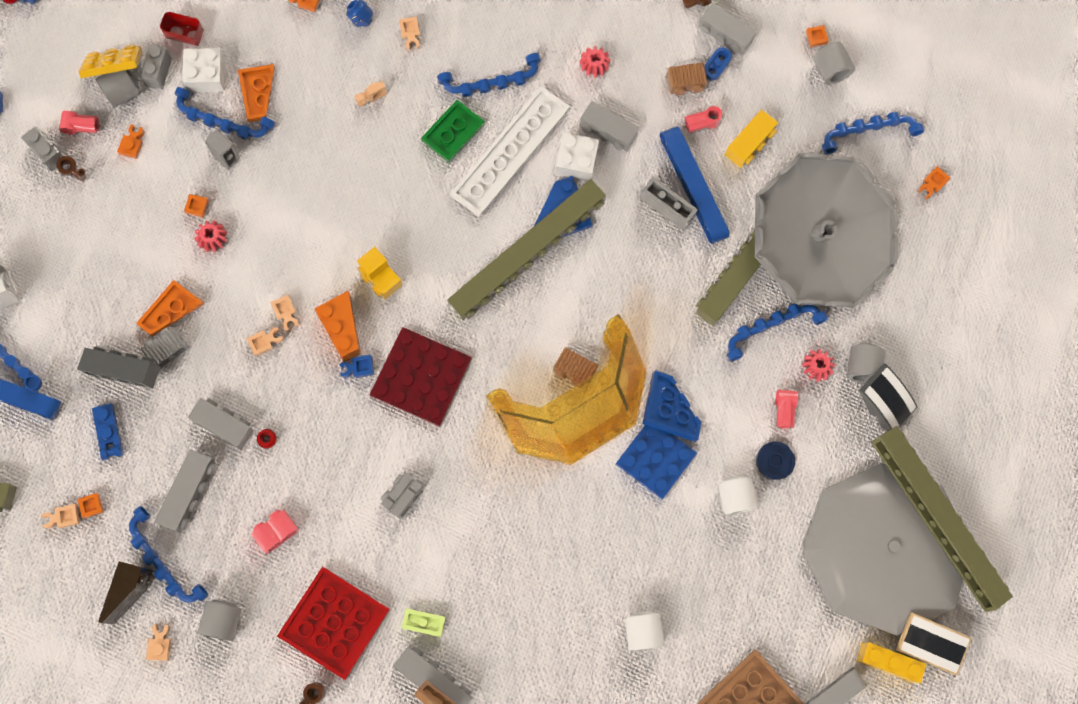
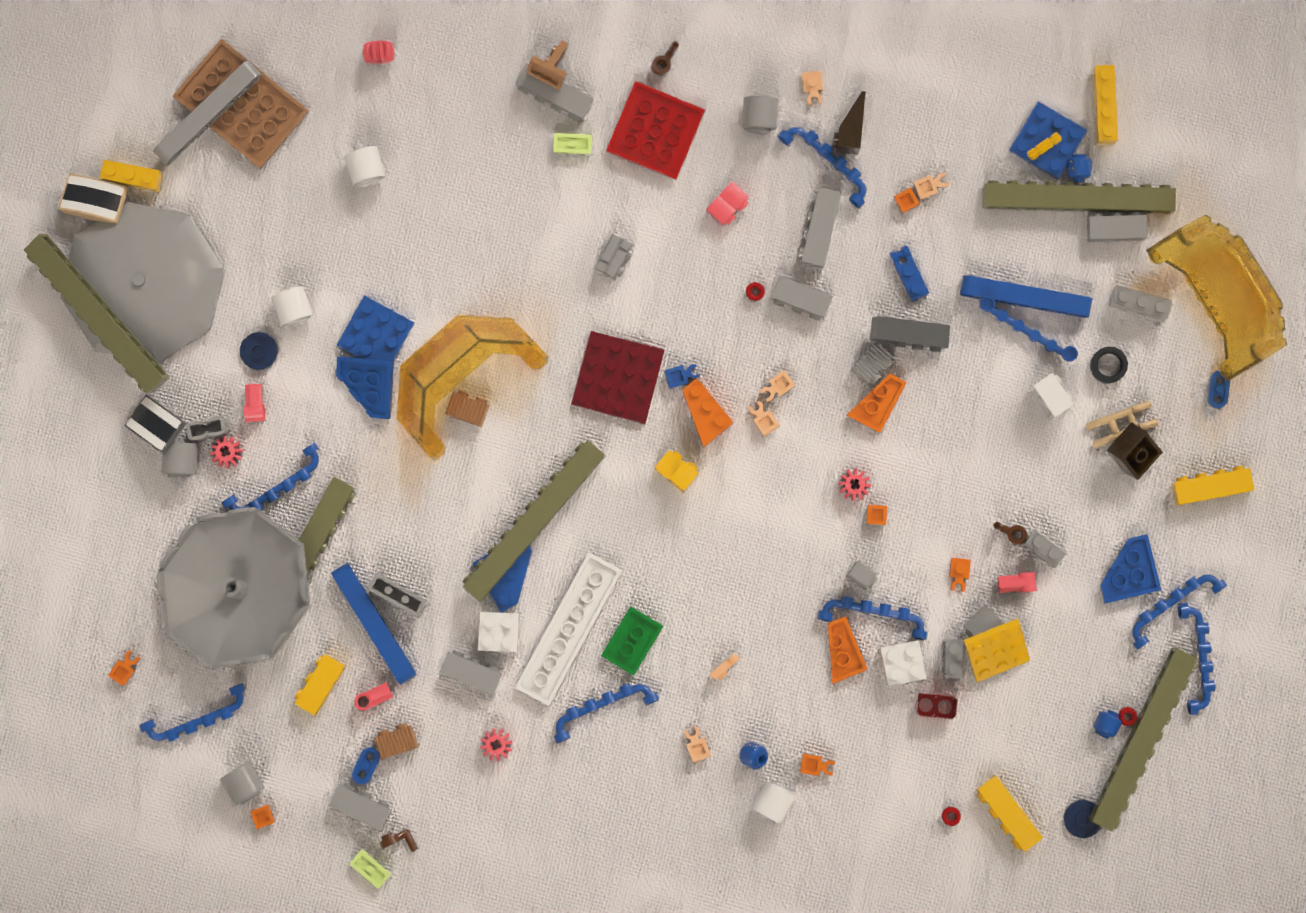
camera: 175 degrees right, 10 degrees up
(840, 389) = (212, 427): none -> light grey brick

